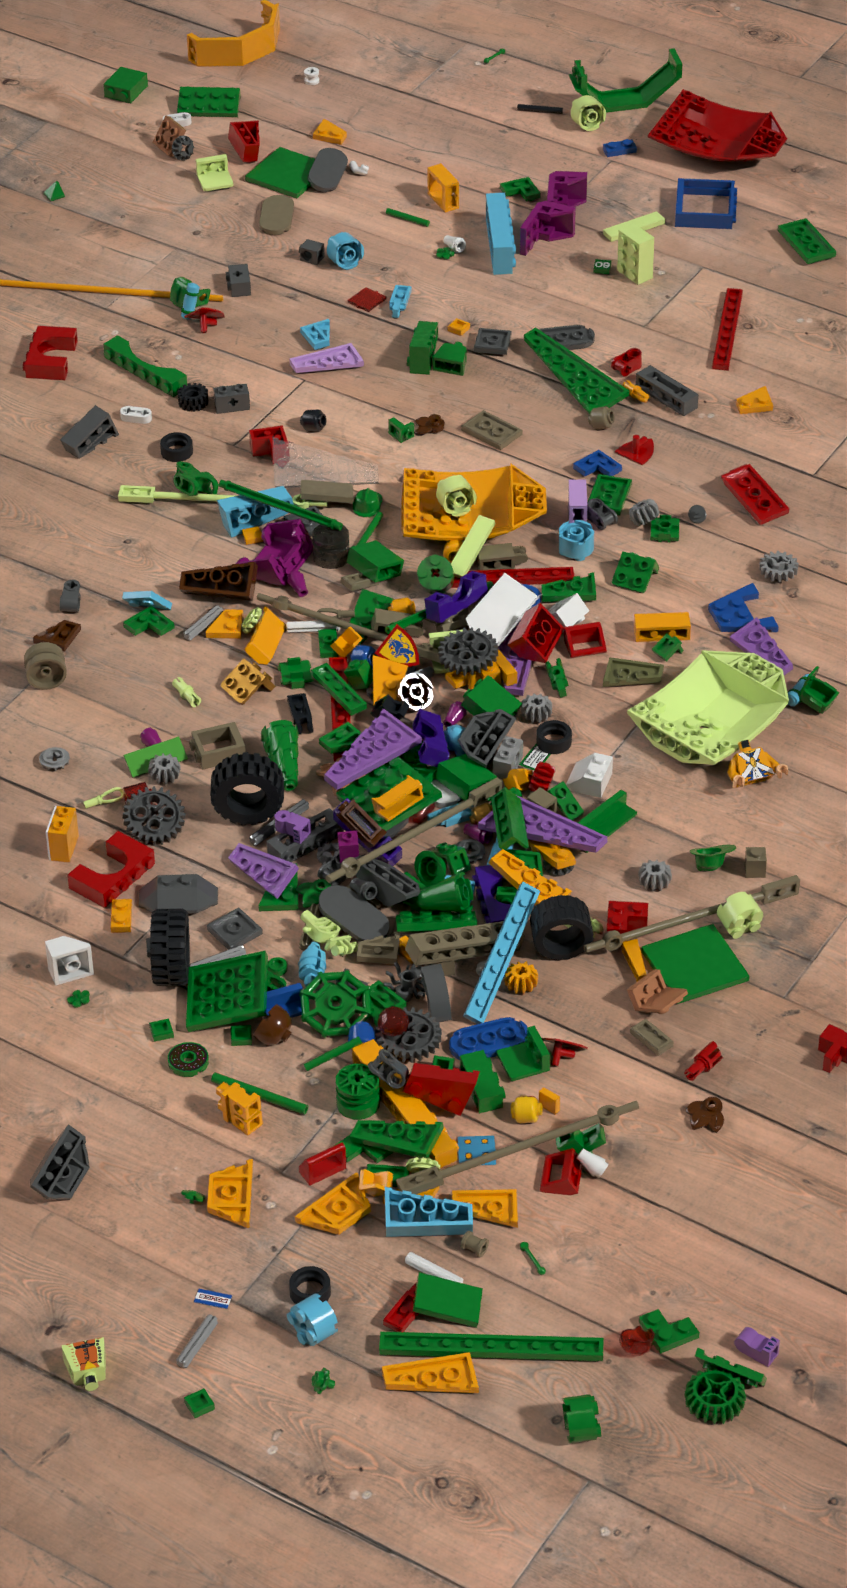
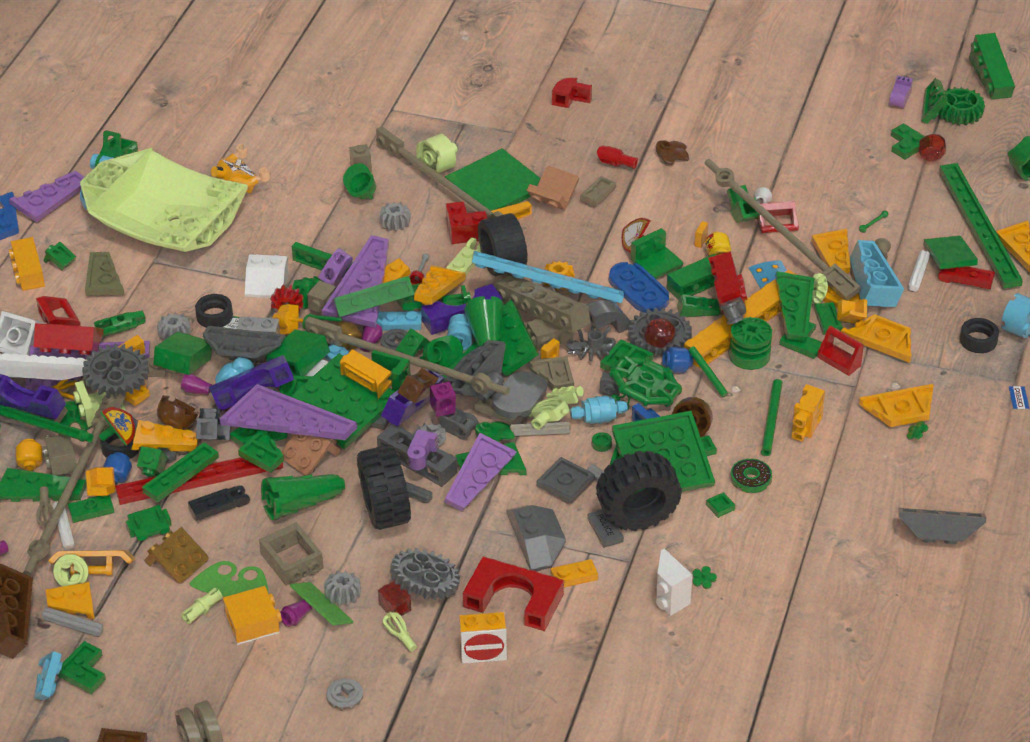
camera: 105 degrees left, 0 degrees up
(159, 713) = (252, 614): none -> light orange piece
(211, 706) = (211, 578): none -> bright green piece
(396, 827) = (397, 365): none -> green bracket
(558, 877) = (418, 274): none -> hinge
(574, 811) = (336, 267): none -> medium lavender leg
(779, 1445) = (991, 66): none -> green wedge

